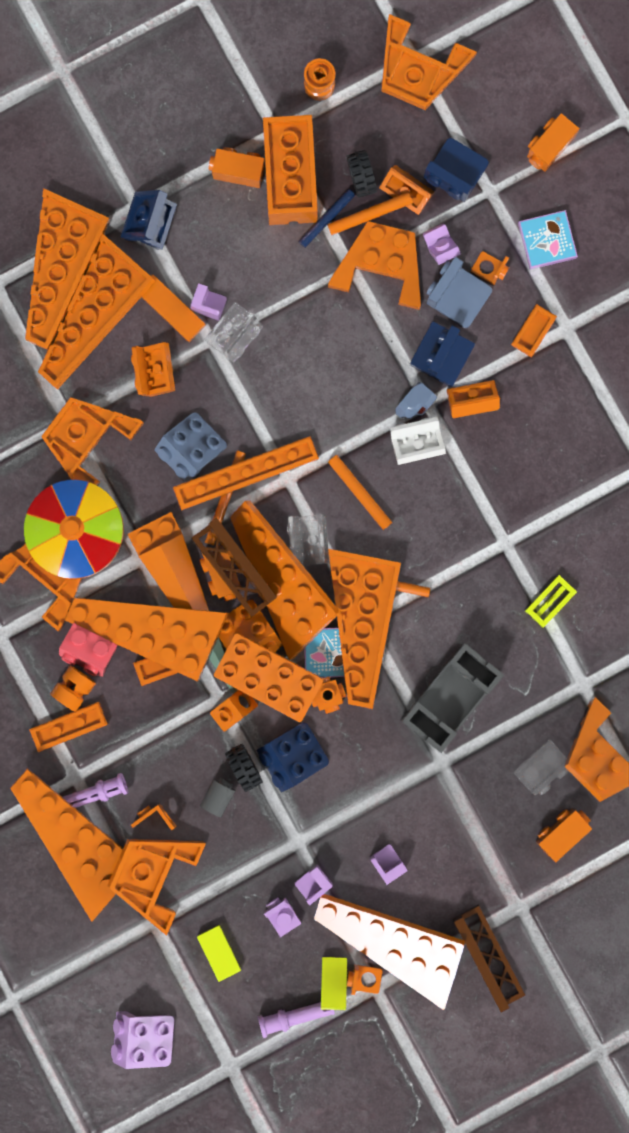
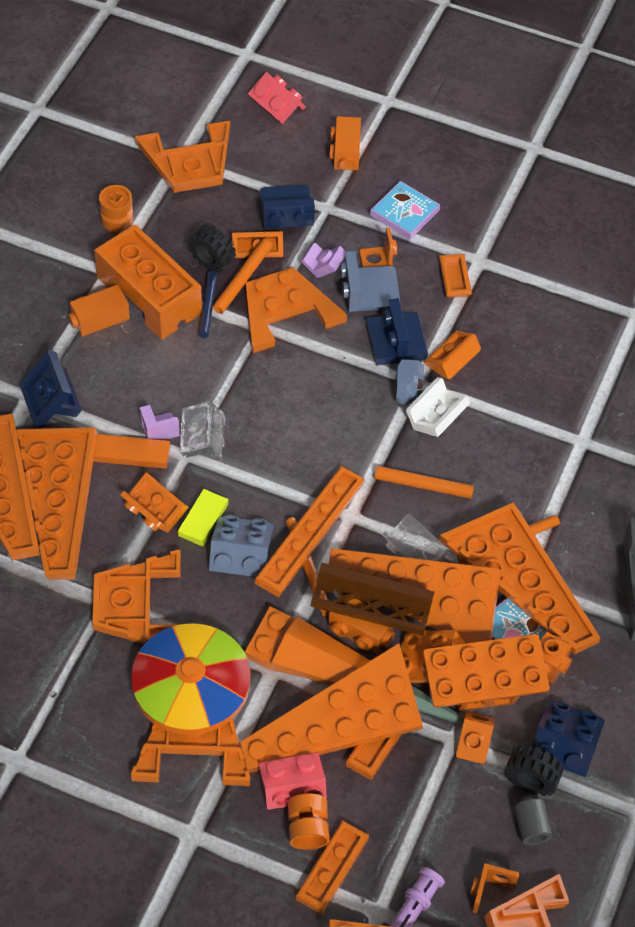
camera: 40 degrees left, 30 degrees down
(182, 404) = (203, 517): none -> neon yellow tile
(535, 52) = (275, 98): none -> coral bracket

